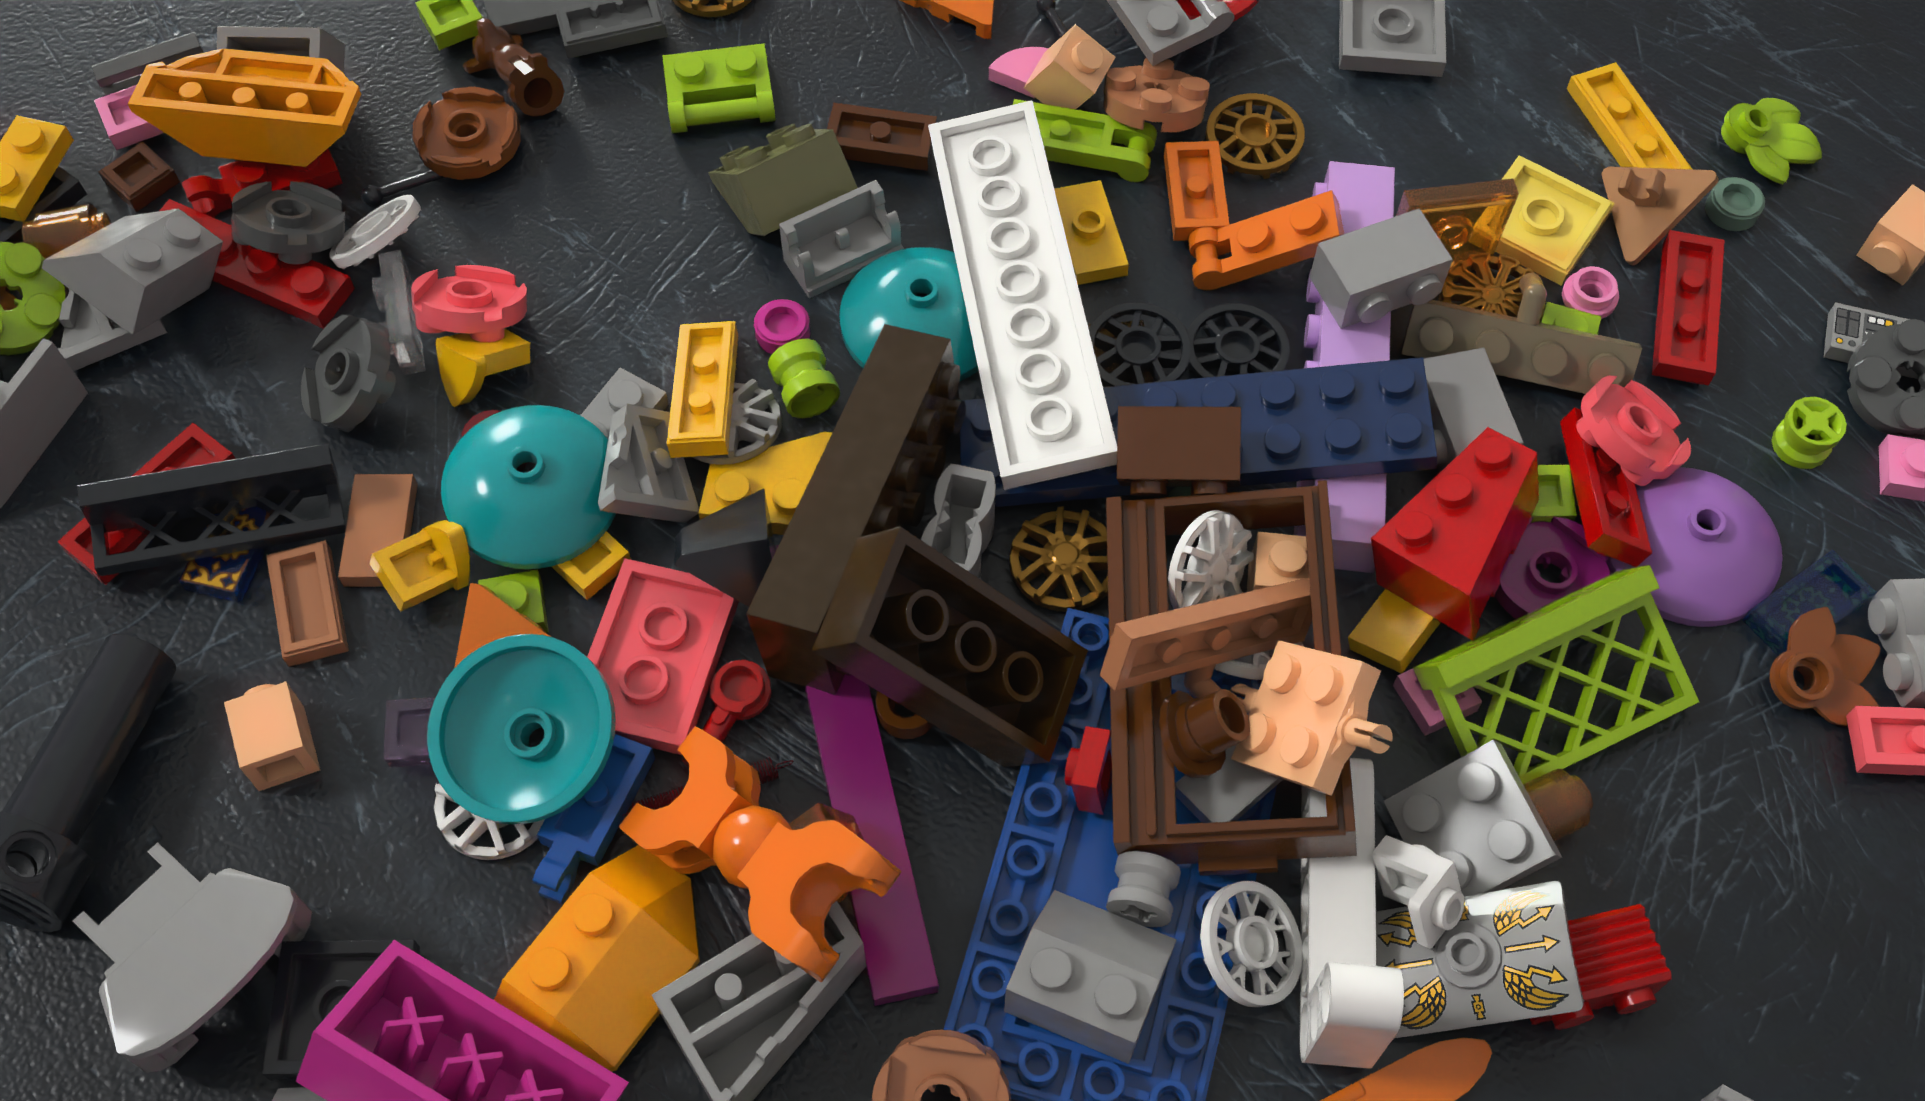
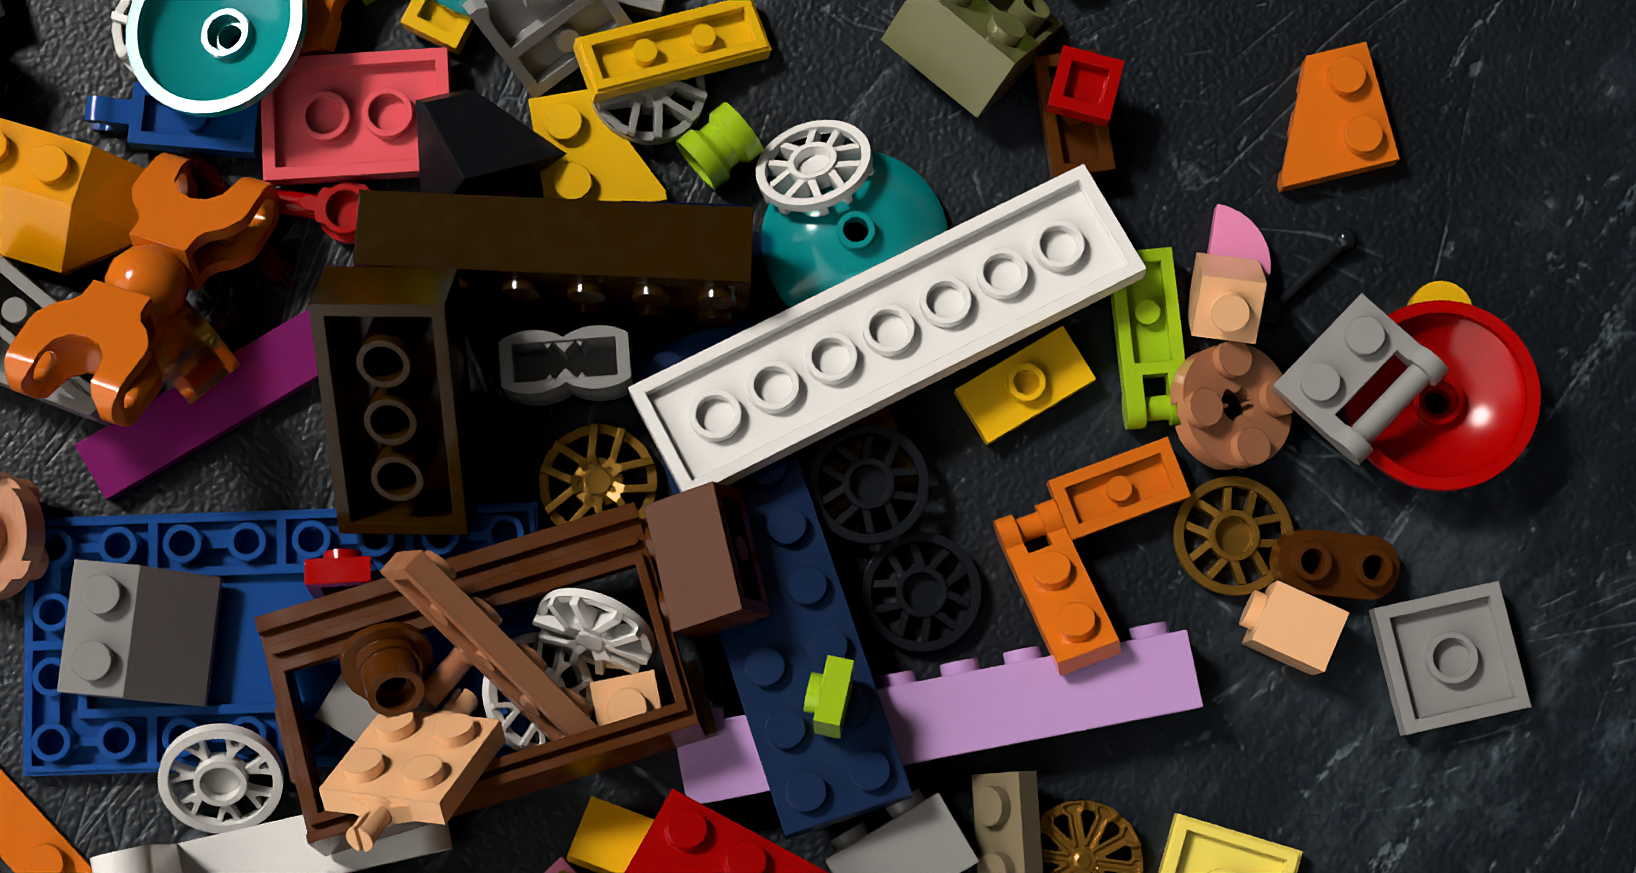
camera: 70 degrees right, 20 degrees up
(780, 323) = (788, 99): dark pink tile -> none
(839, 238) = (911, 122): light grey hinge -> none
(852, 310) = (814, 167): none -> white wheel
(865, 106) = (1085, 86): none -> red plate
(1144, 888) = (236, 662): light grey wheel -> none
(1298, 75) = (1338, 564): none -> reddish brown plate
(1331, 376) = (830, 695): none -> lime plate
(1343, 108) = (1292, 627): none -> light nougat brick
(1380, 268) = (1025, 722): light grey piece -> none
(1465, 216) = (1138, 791): clear orange tile -> none

